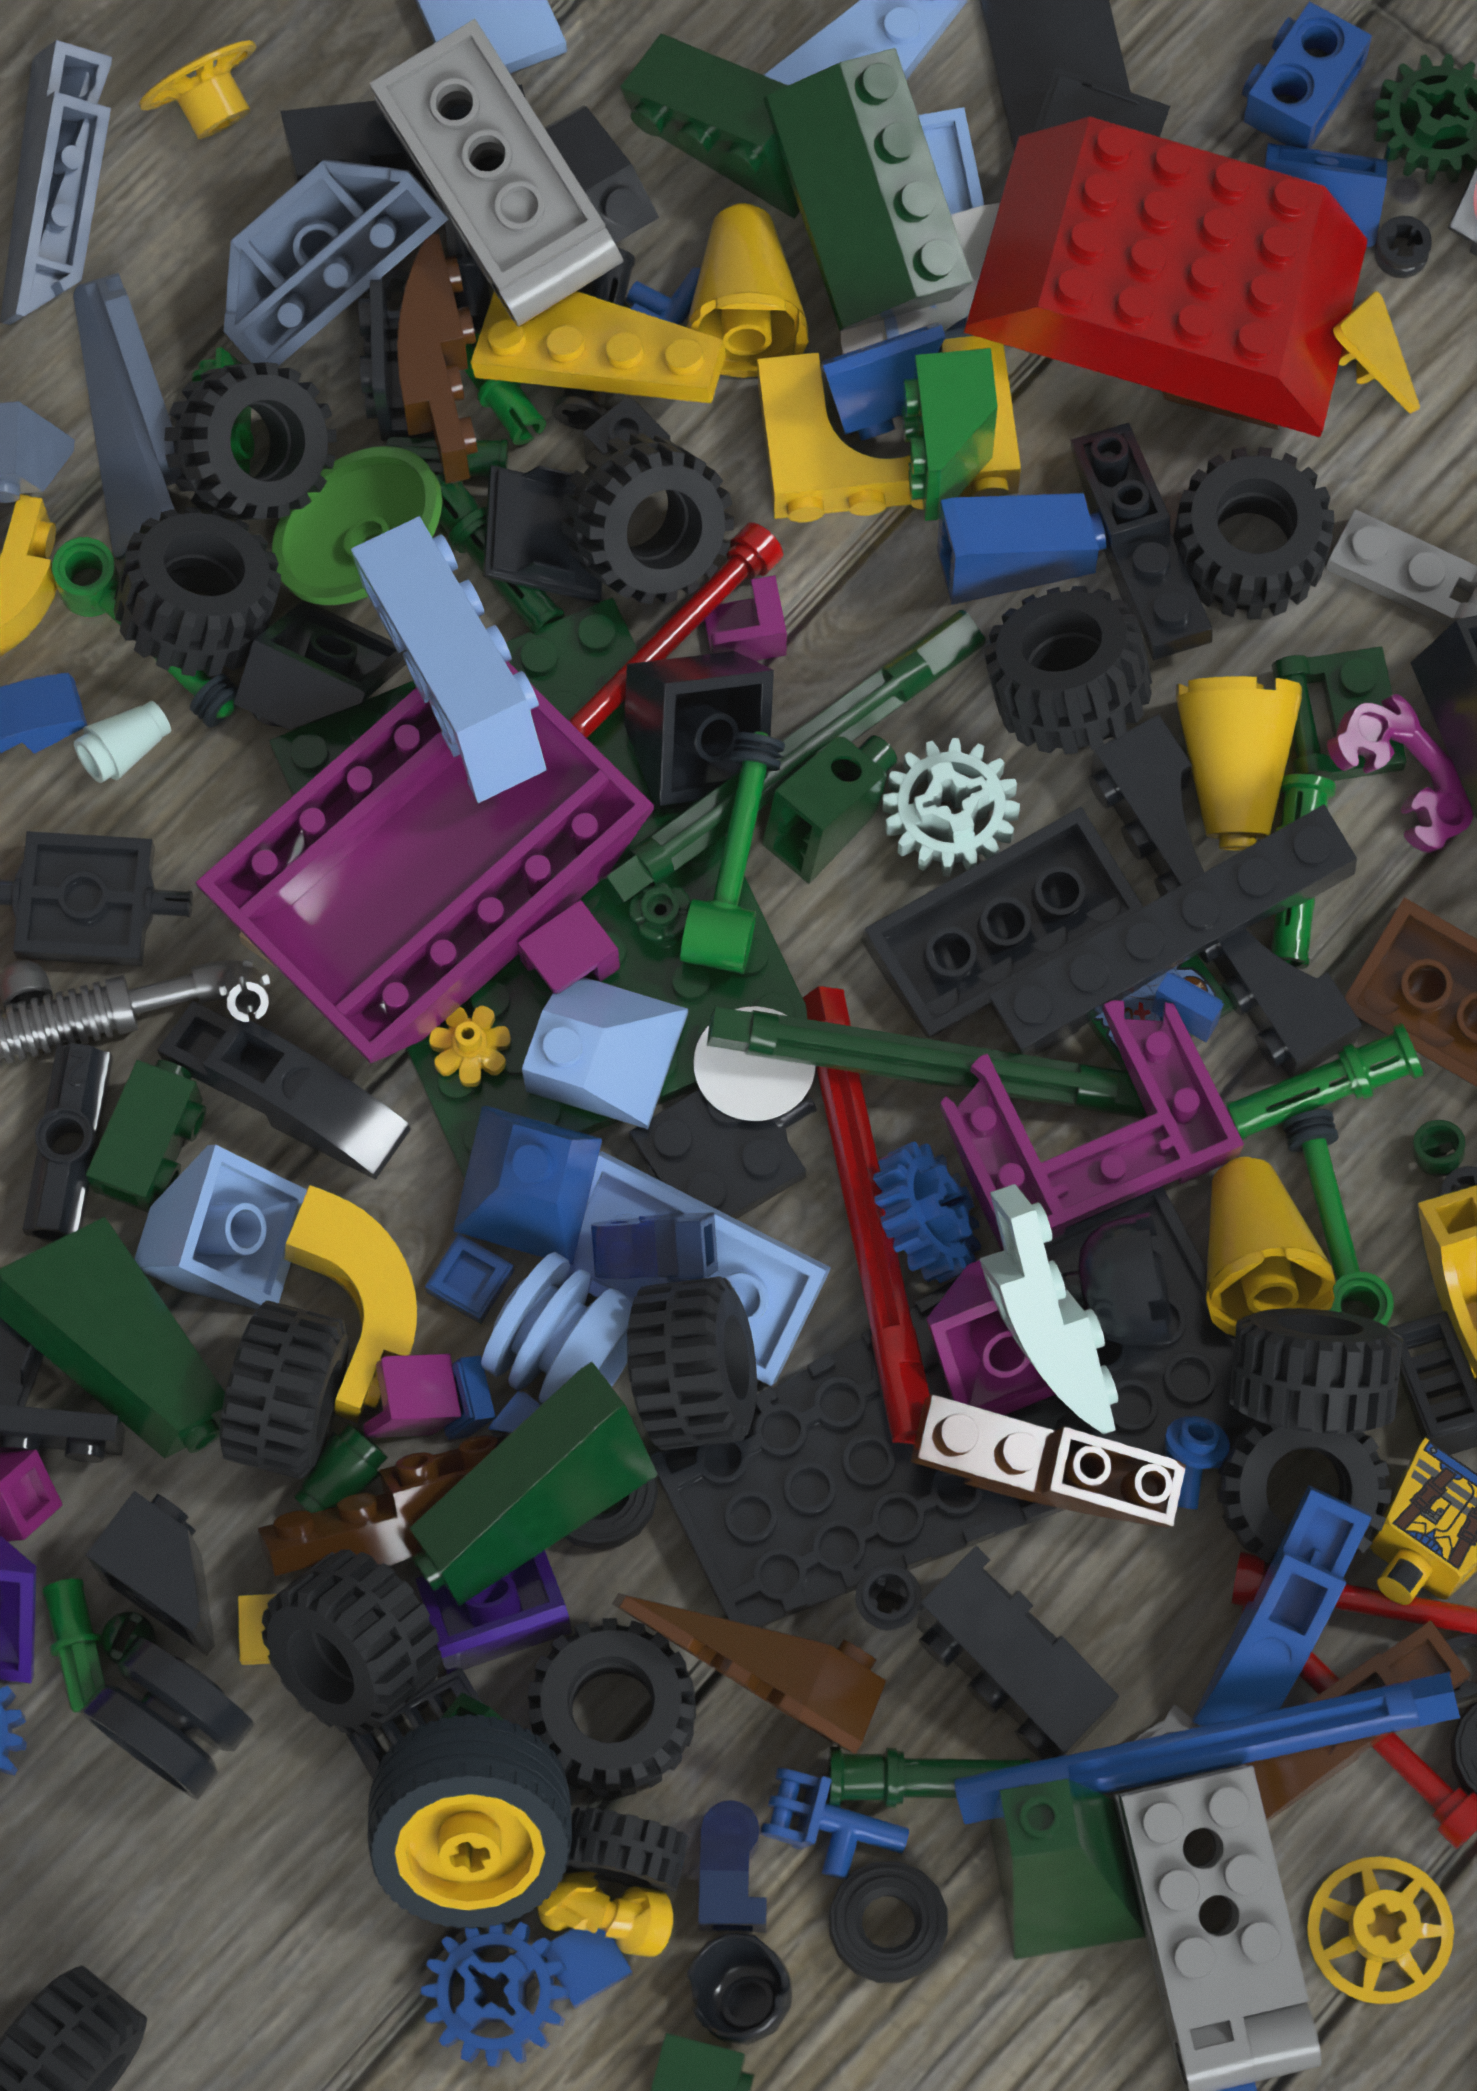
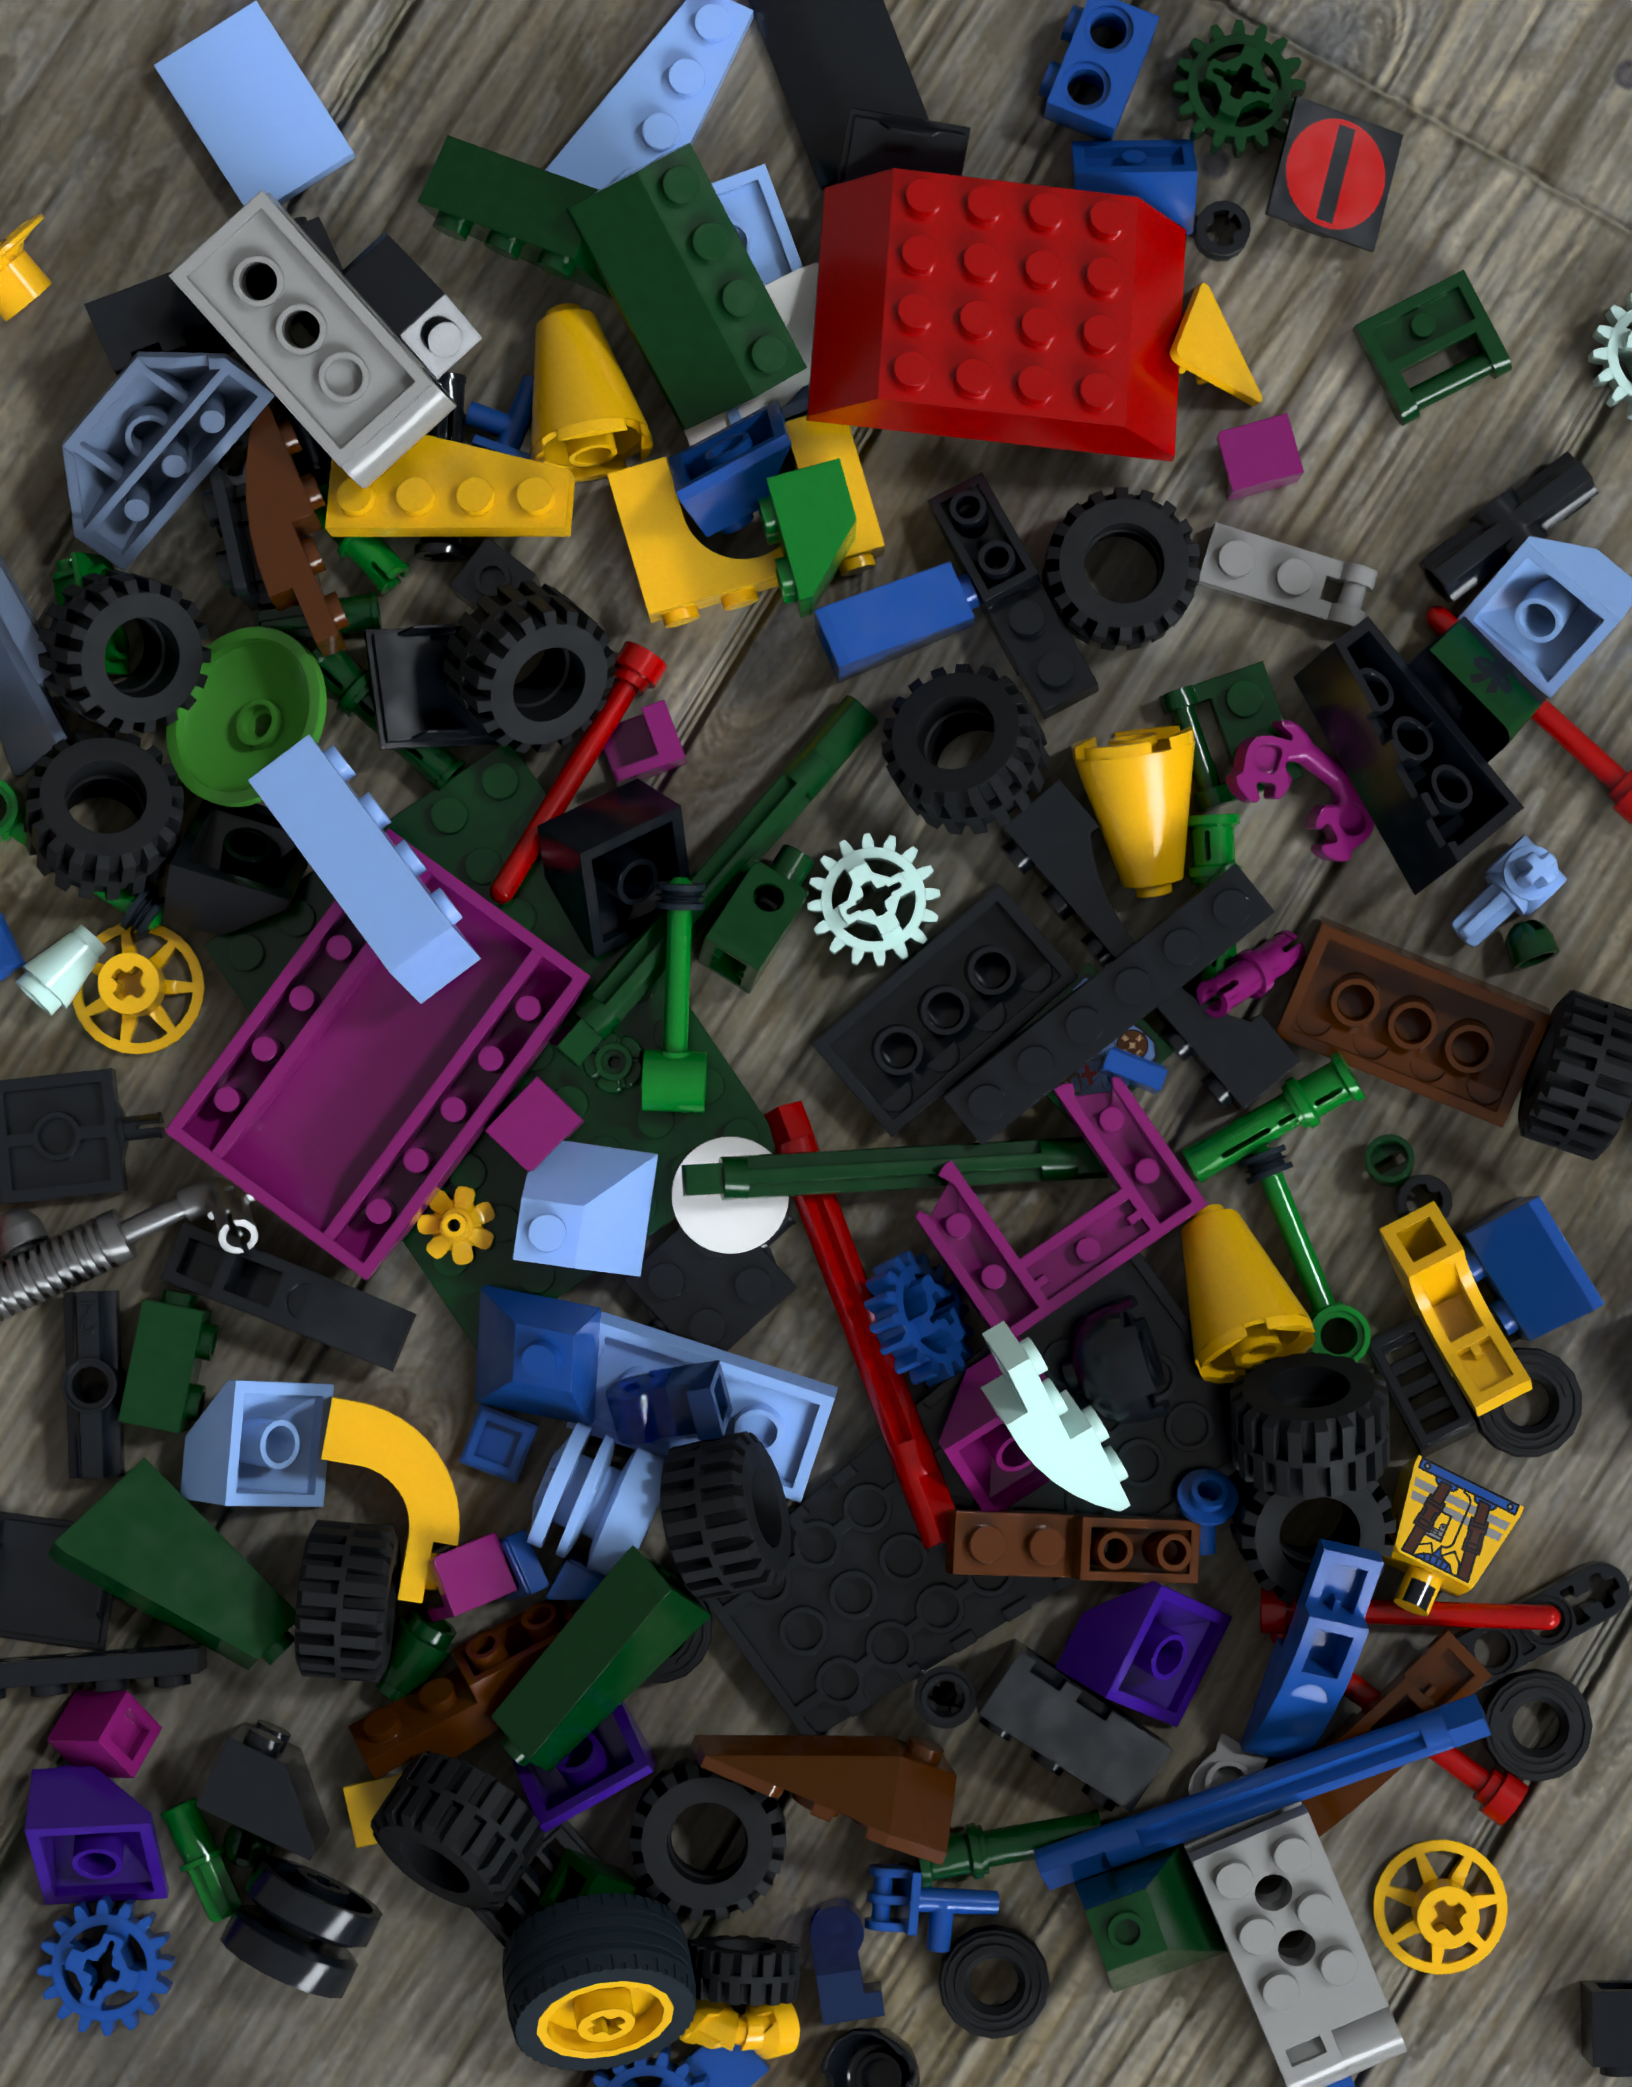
camera: 10 degrees left, 15 degrees up
(191, 769) = (137, 988): none -> yellow wheel
(1111, 1594) = (1145, 1649): none -> dark purple slope
(1323, 934) = (1250, 973): none -> magenta pin
(1408, 454) = (1259, 456): none -> magenta panel

